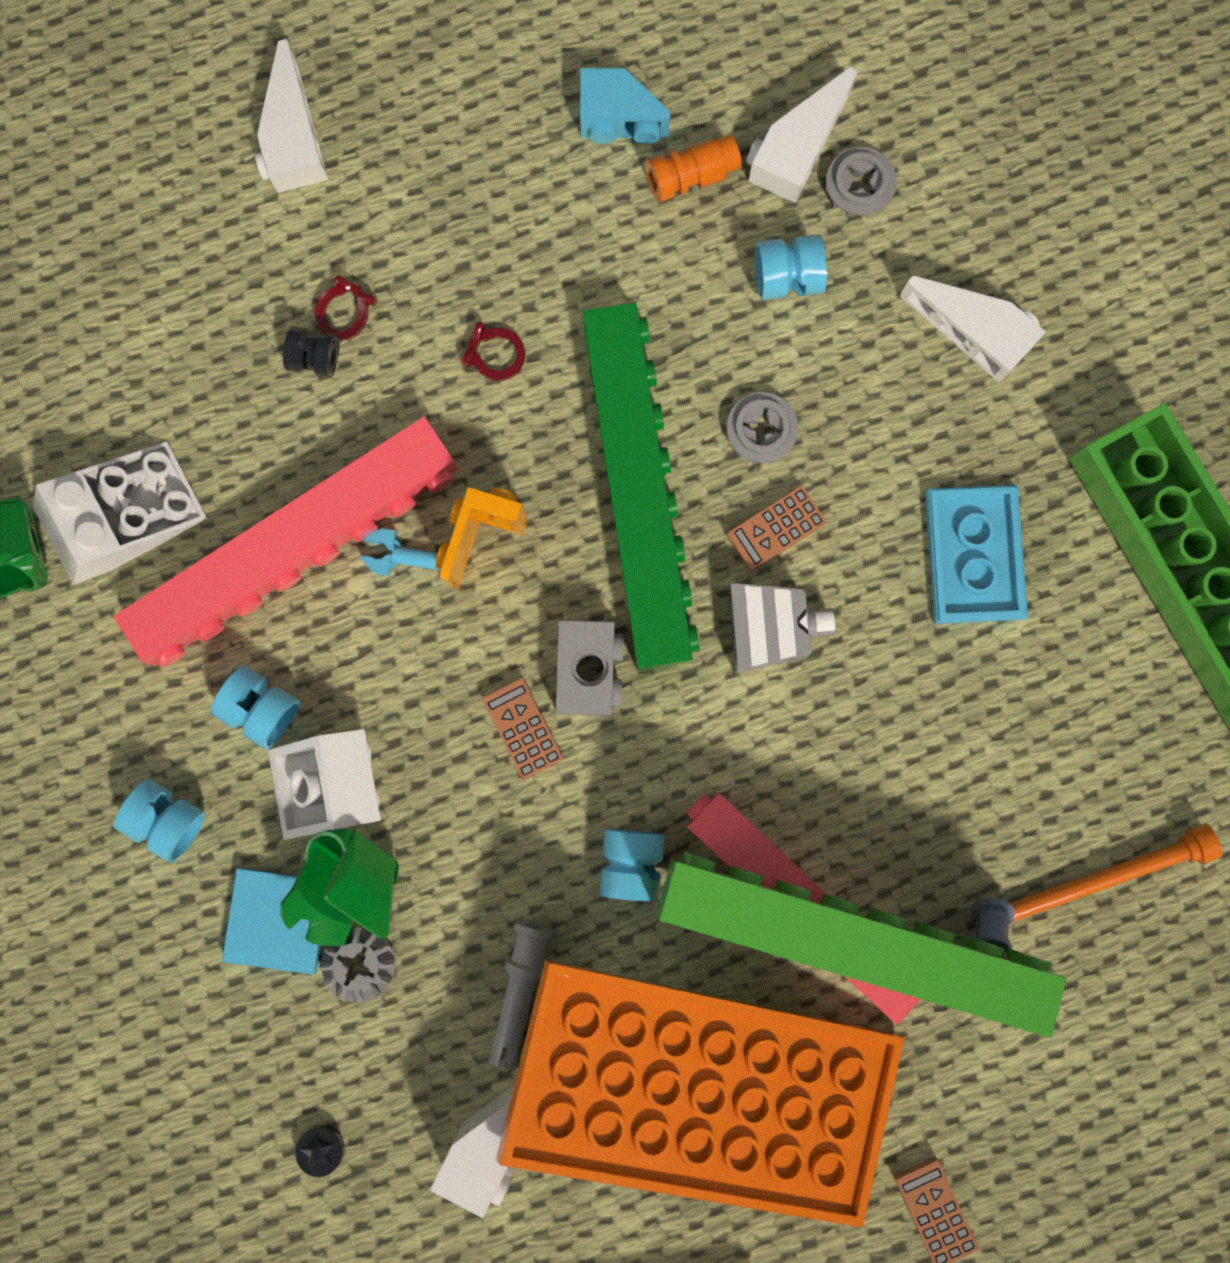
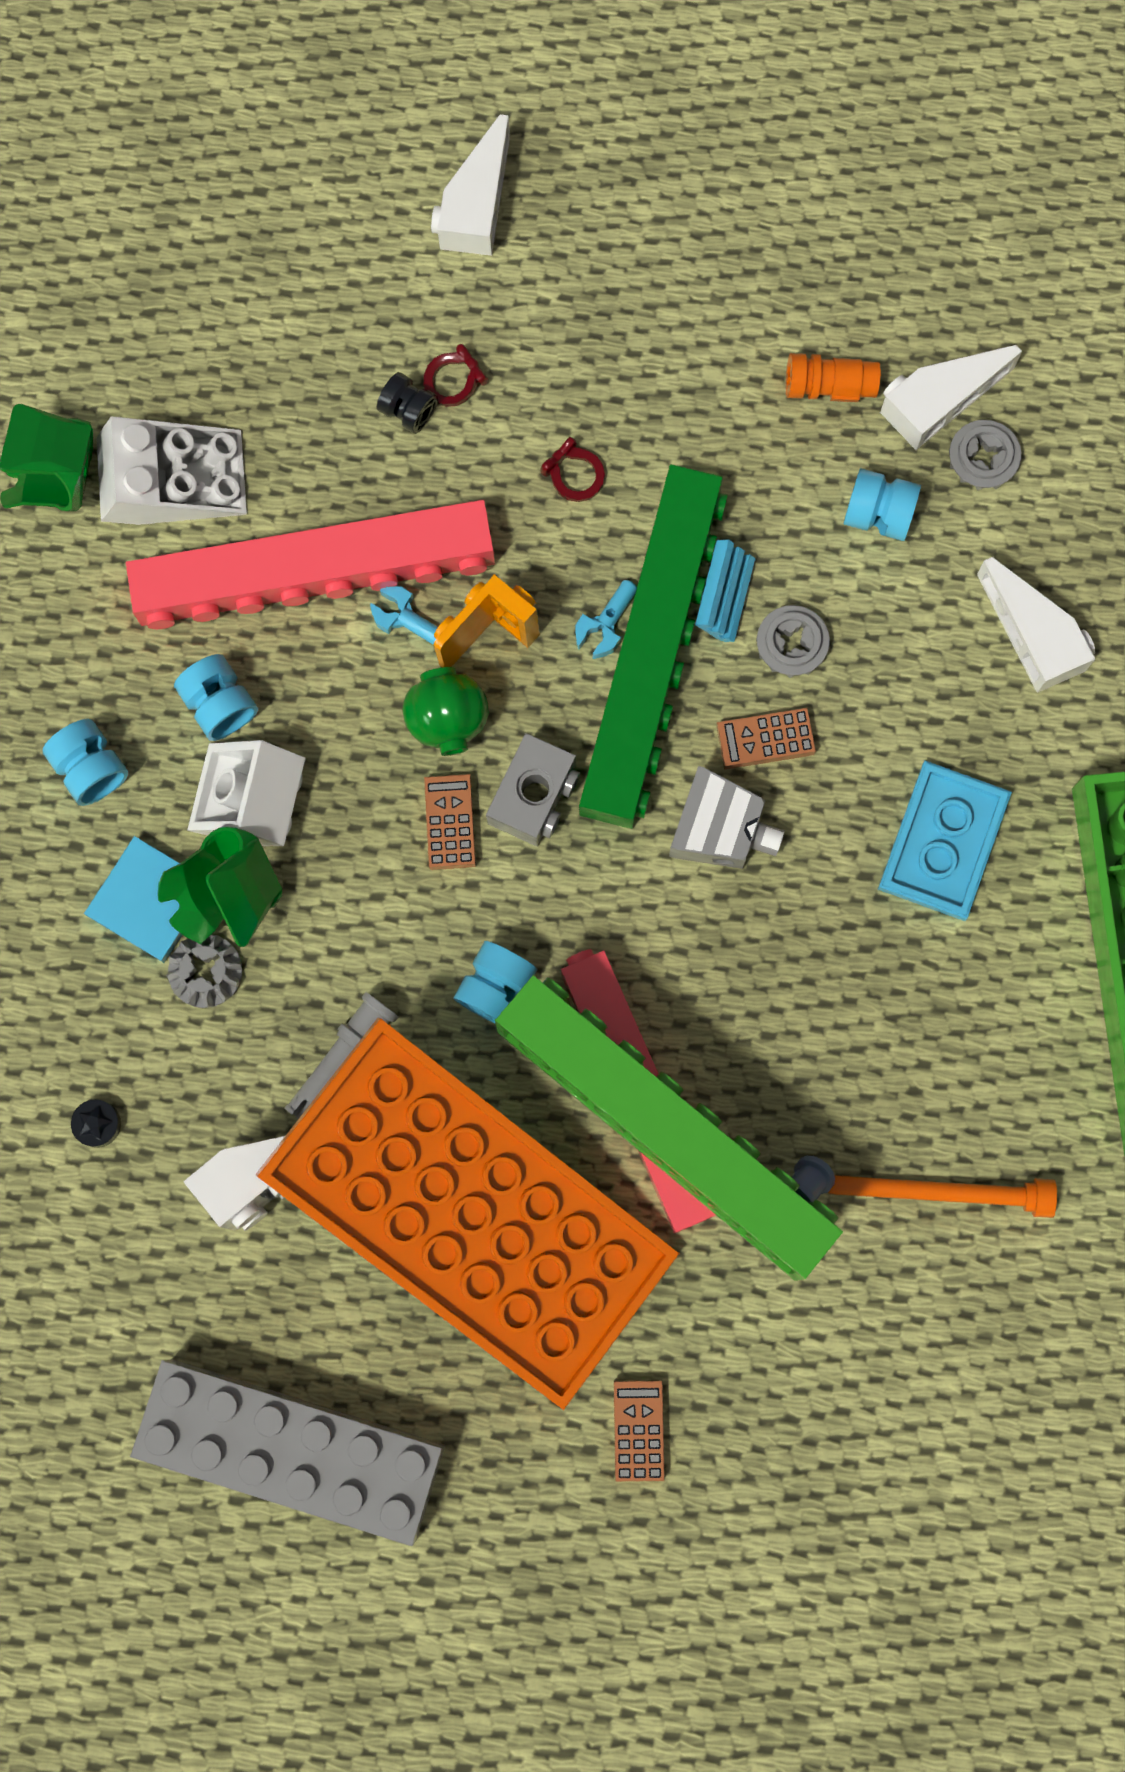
camera: 25 degrees right, 5 degrees down
(475, 630) = (445, 710): none -> green plant
(584, 479) = (606, 621): none -> medium azure bar
(619, 107) = (786, 296): medium azure slope -> none
(681, 407) = (725, 591): none -> medium azure tile

